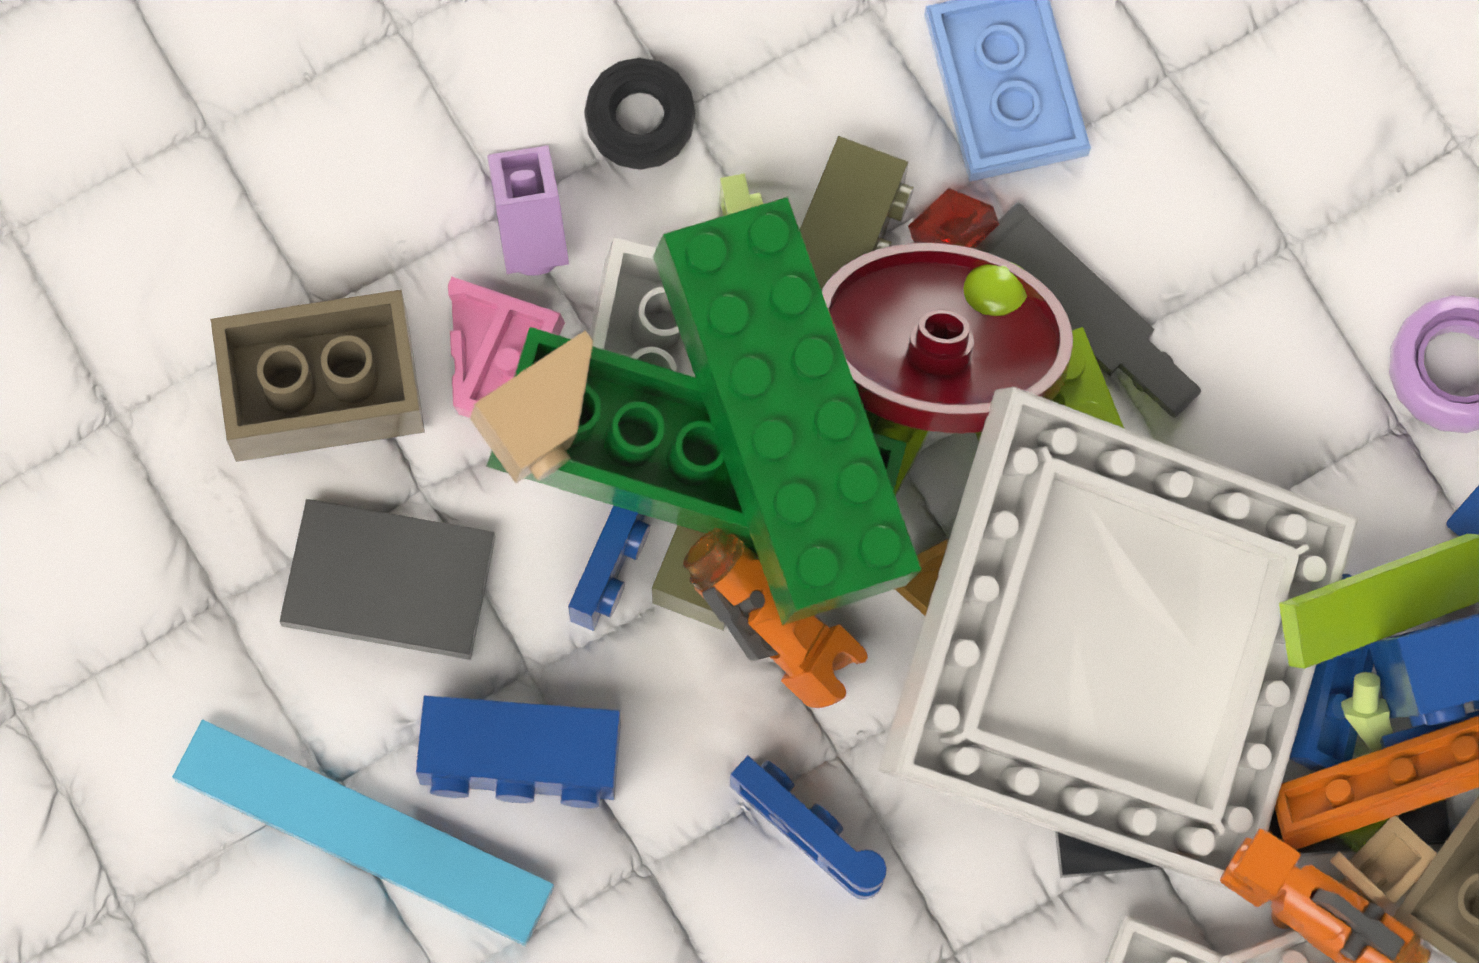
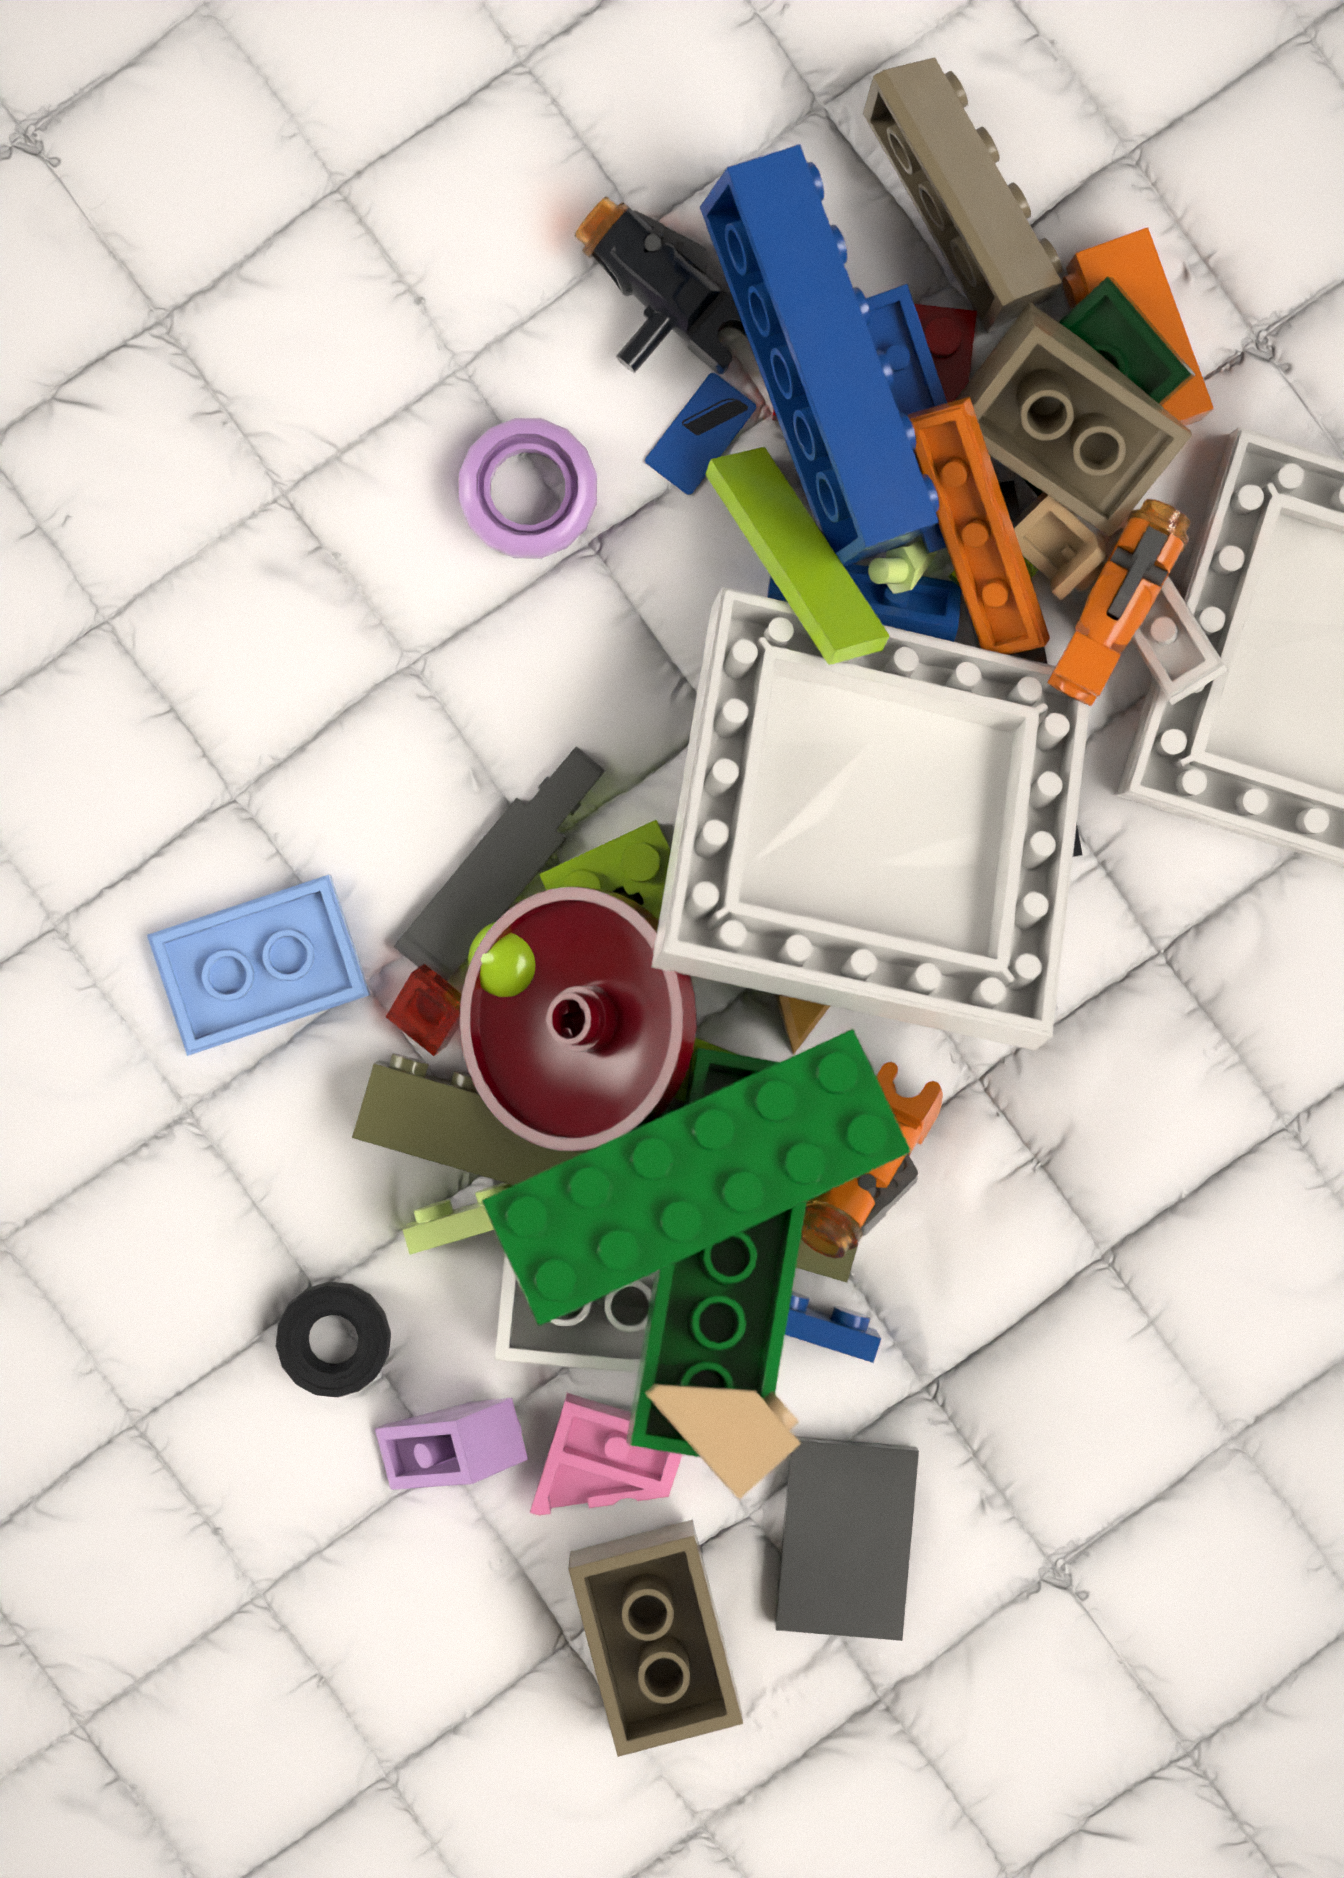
camera: 90 degrees left, 15 degrees up
(363, 832) = (1099, 1533): medium azure tile -> none
(518, 750) = (1012, 1393): blue brick -> none
(810, 829) = (1063, 1102): blue plate -> none

